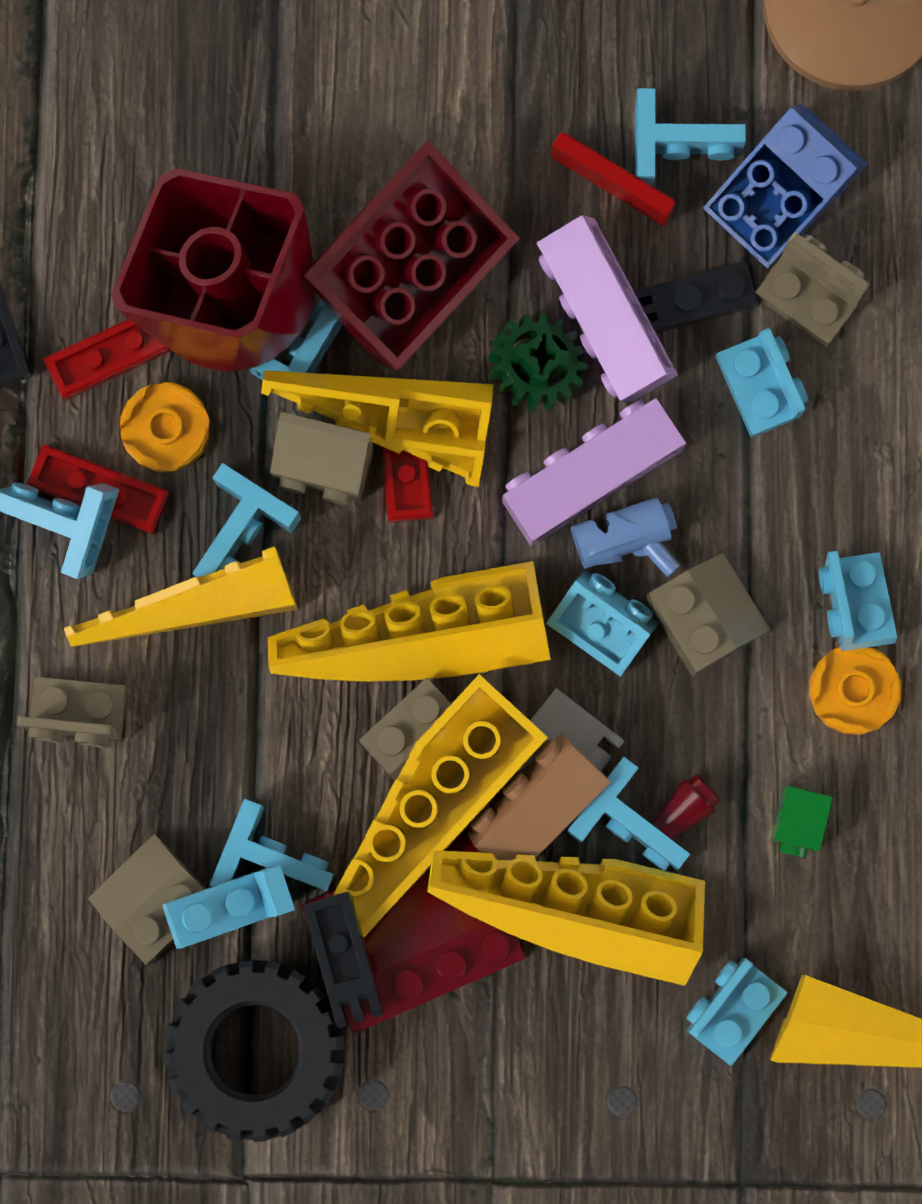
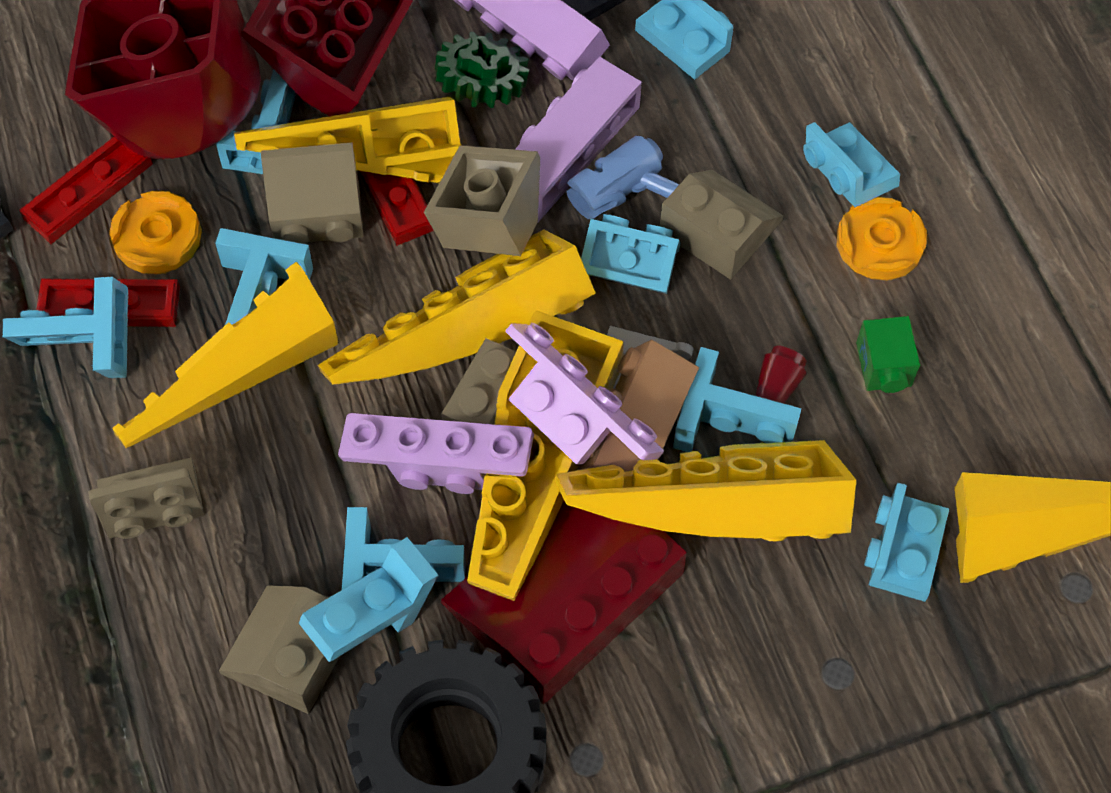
camera: 25 degrees left, 20 degrees down
(341, 771) = (436, 450): none -> lavender bracket
(343, 957) = (504, 606): black hinge -> none
(474, 788) = (569, 406): none -> lavender bracket
(484, 524) = (487, 200): none -> dark tan slope

